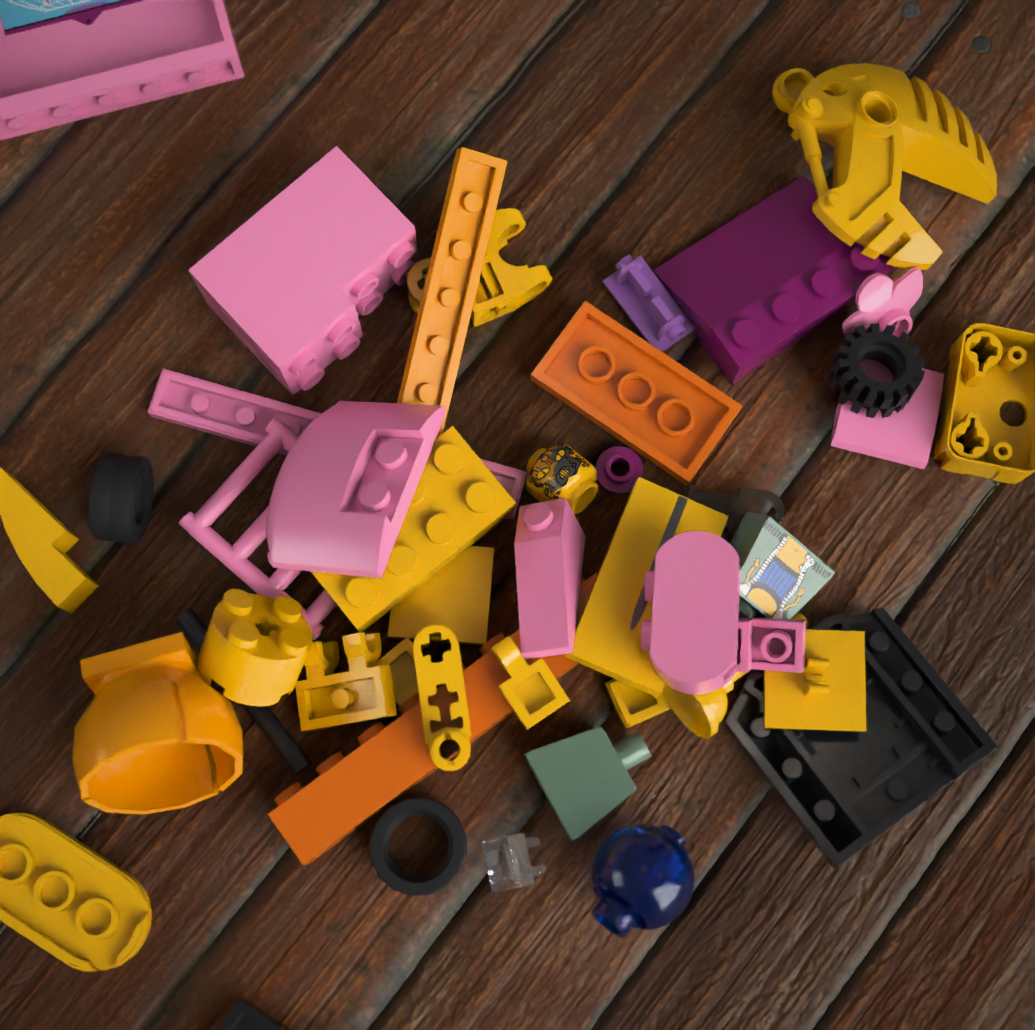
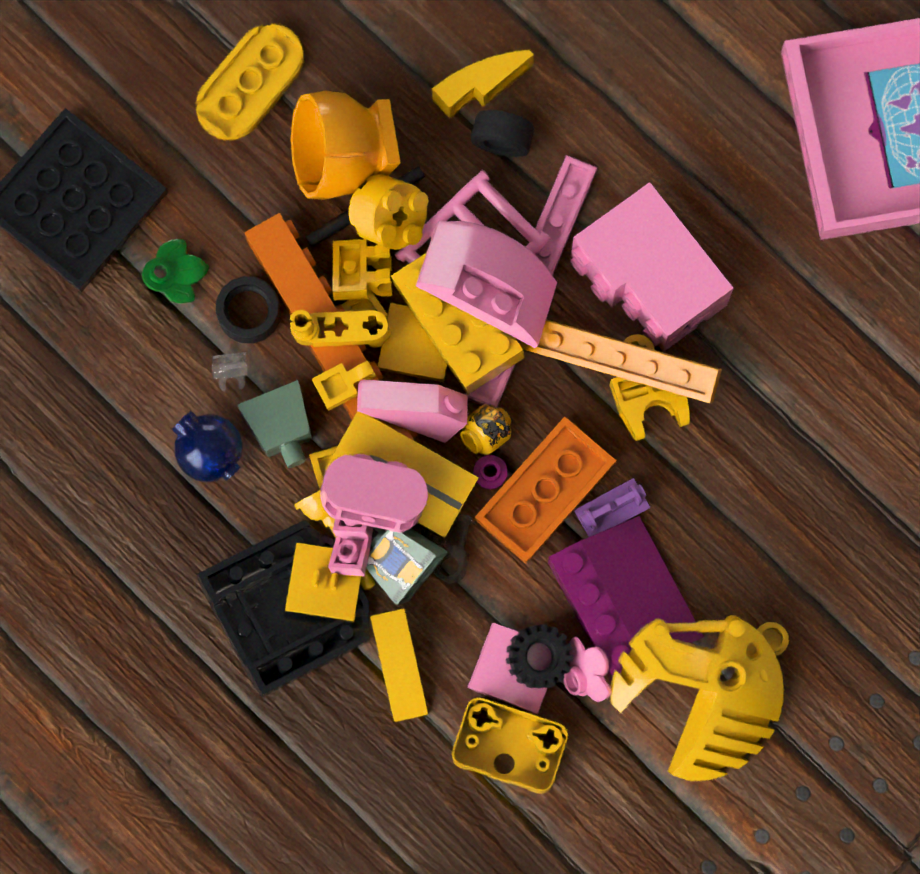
camera: 100 degrees right, 0 degrees up
(364, 961) = (179, 270): none -> green plate
(908, 564) = (399, 665): none -> yellow slope

